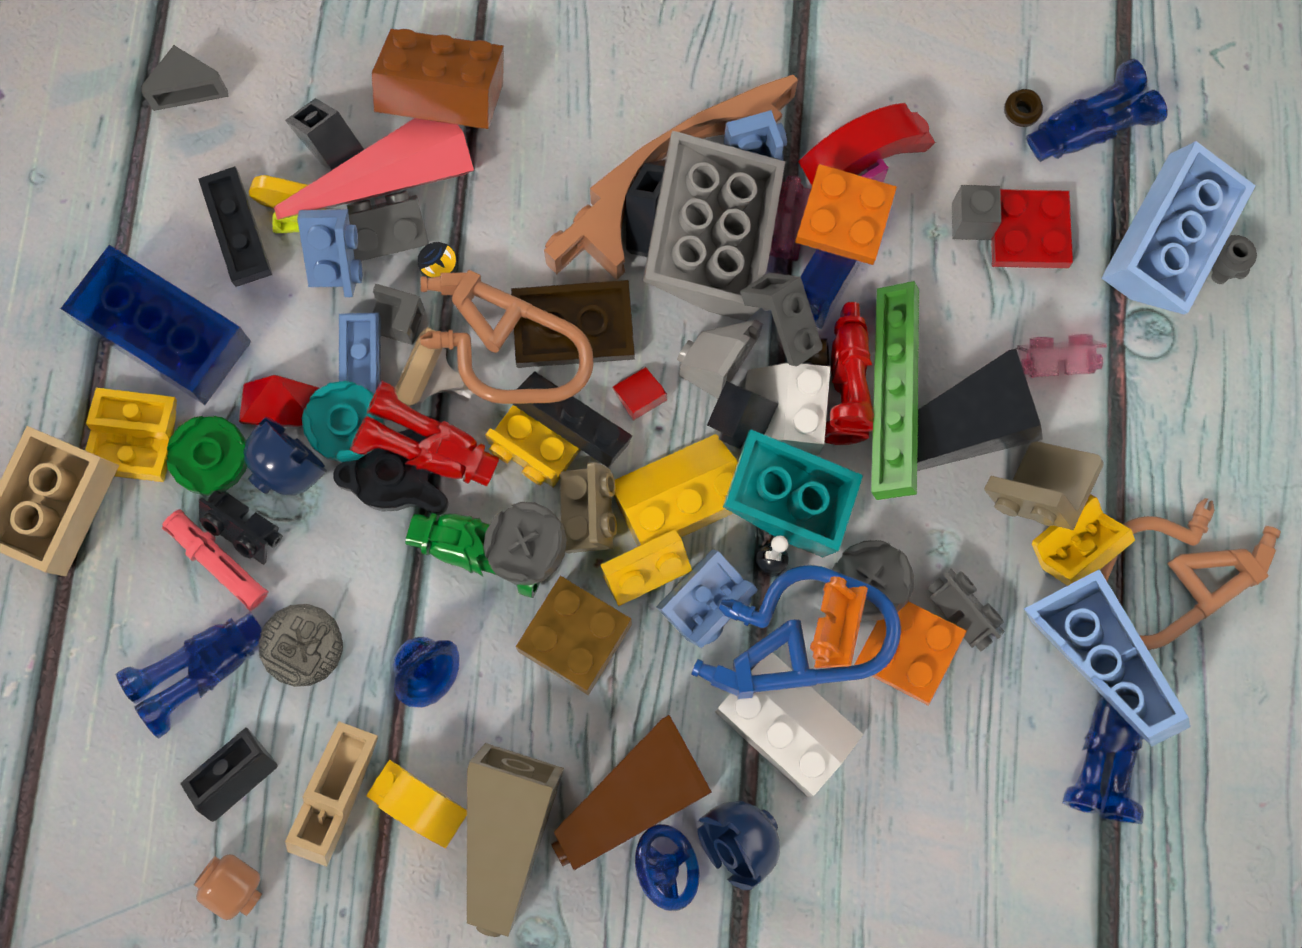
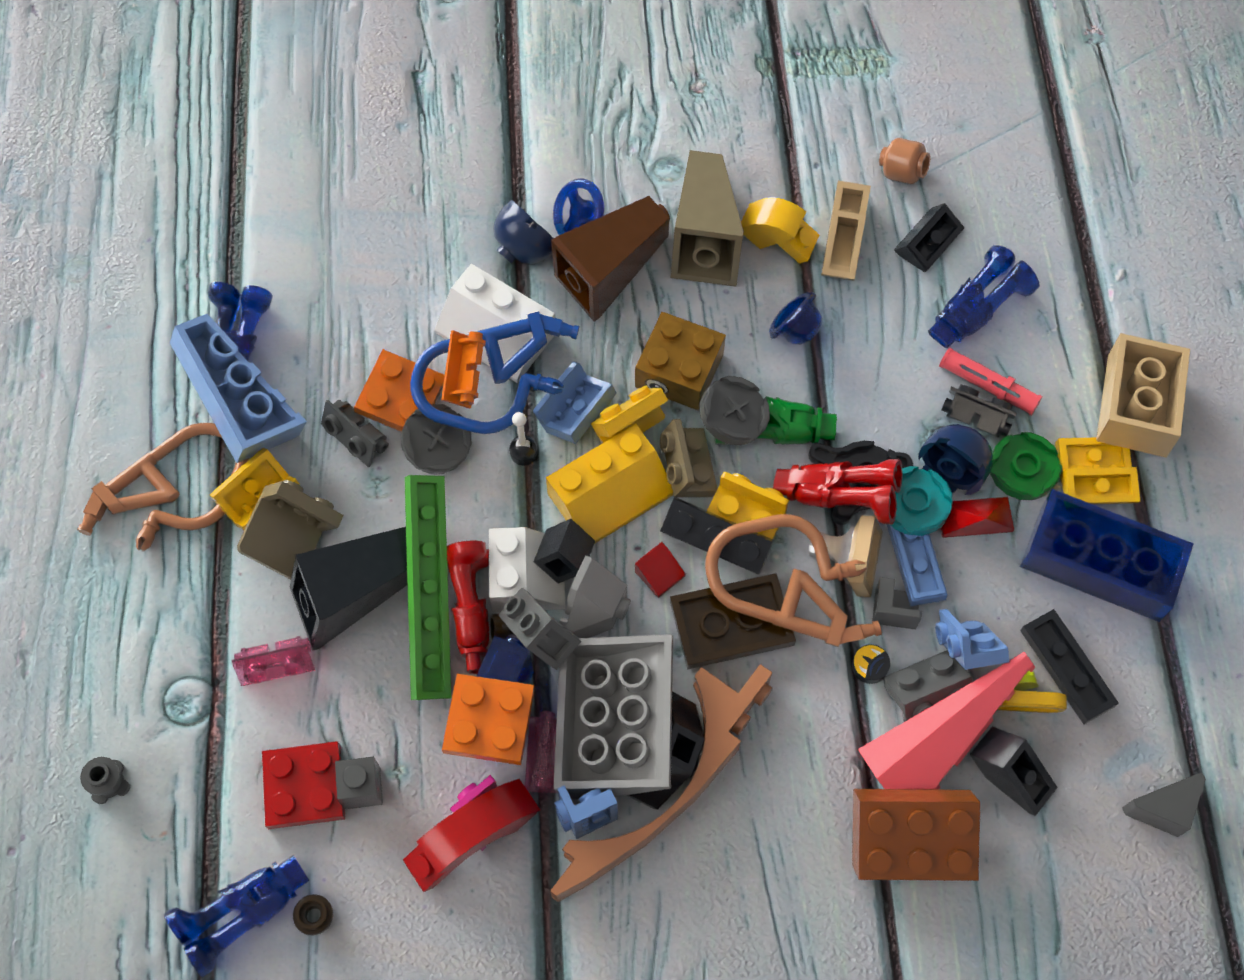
camera: 175 degrees right, 10 degrees down
(300, 645) = (900, 327): clear smoke tile -> none
(793, 494) = (510, 483): teal slope -> none
(1179, 230) = (156, 791): light blue slope -> none

